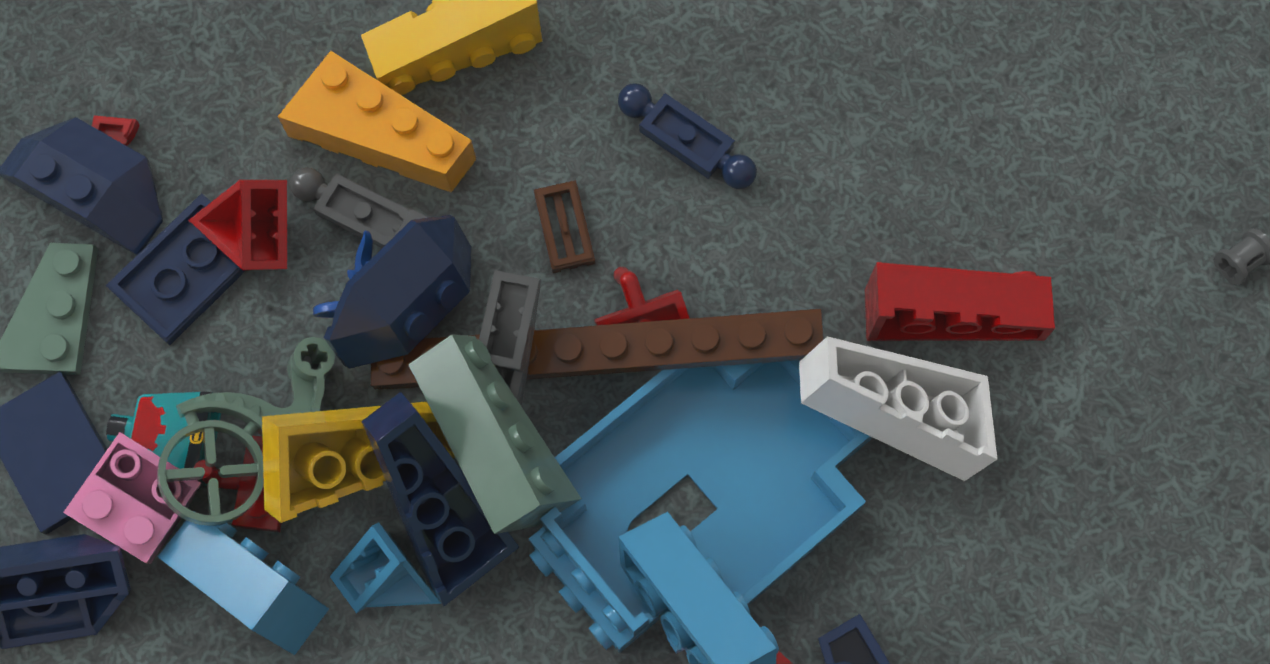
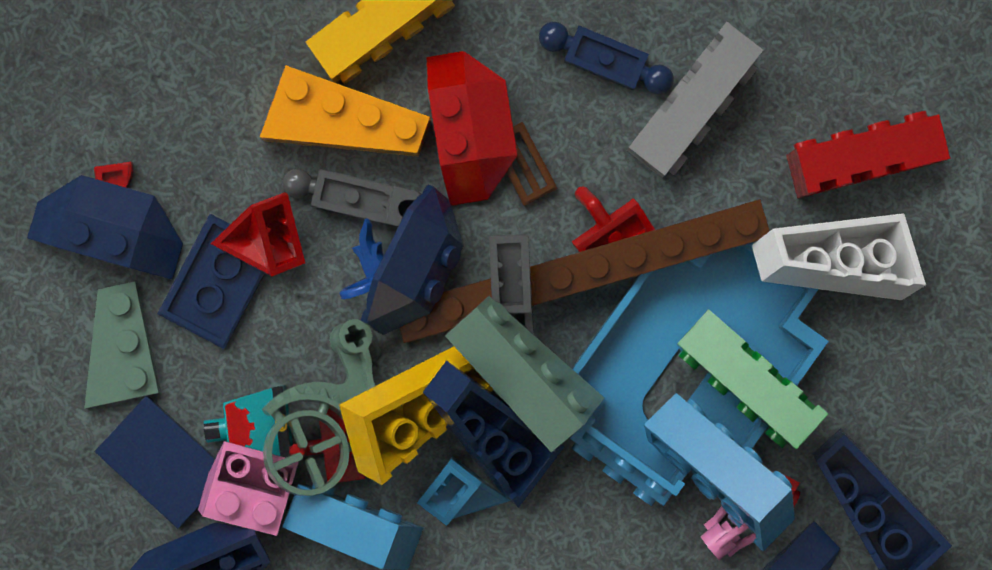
camera: 15 degrees left, 15 degrees up
(514, 172) = (470, 126): none -> red wedge
(761, 519) = (751, 380): none -> wedge
(775, 198) = (695, 100): none -> light grey wedge

